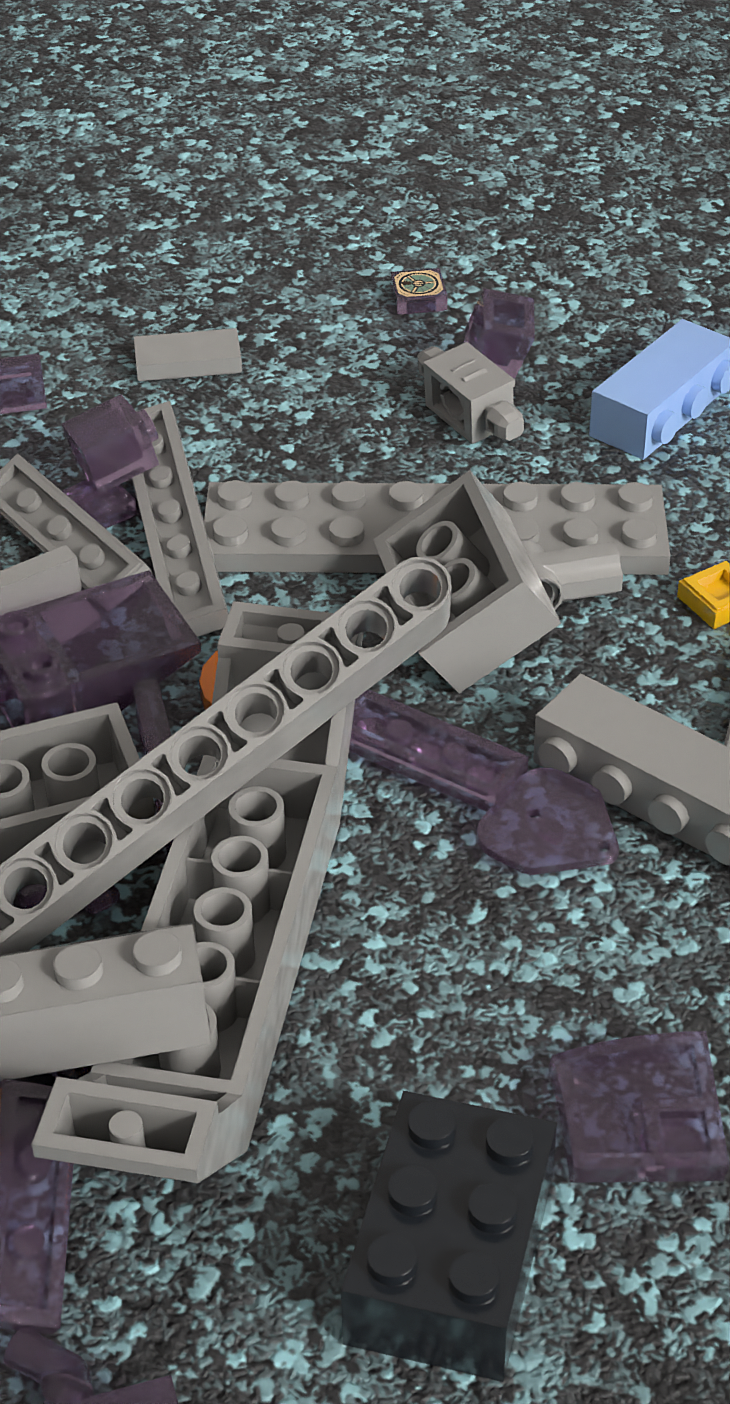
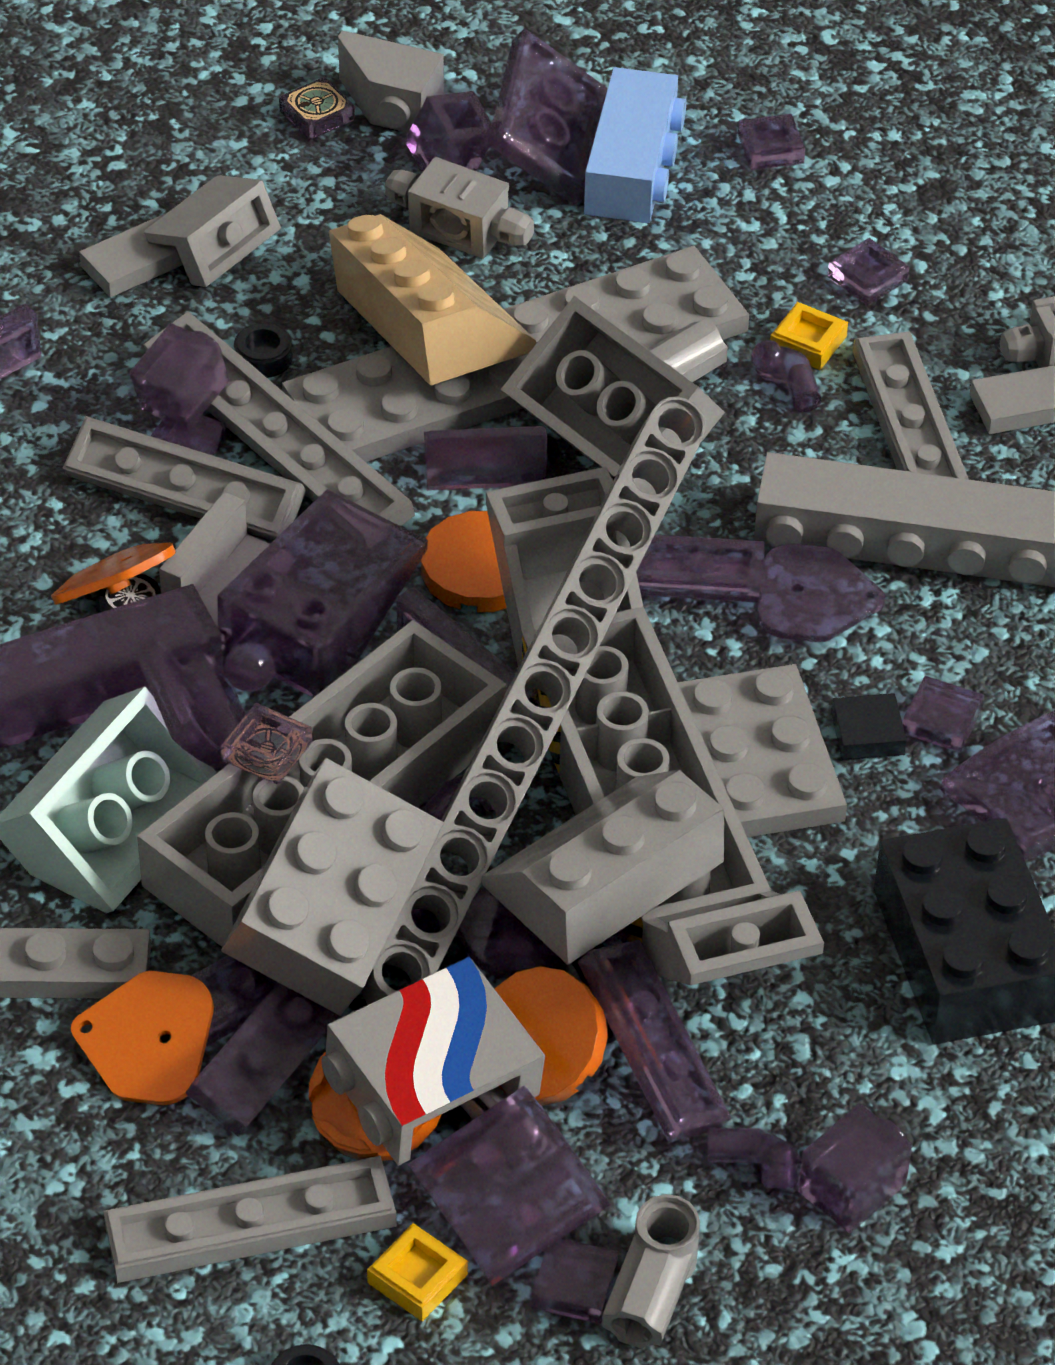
camera: 30 degrees left, 5 degrees up
(221, 455) = (265, 348): none -> black tile
(256, 351) = (217, 226): none -> light grey panel
(314, 586) = (484, 457): none -> clear purple panel
(370, 447) = (422, 300): none -> tan slope
(383, 959) = (767, 749): none -> light grey plate
(493, 269) = (388, 78): none -> light grey slope
(512, 974) = (868, 726): none -> black tile
(592, 338) = (547, 115): none -> clear purple tile
(599, 991) = (942, 713): none -> clear purple tile
(675, 616) = (788, 370): none -> clear purple arm

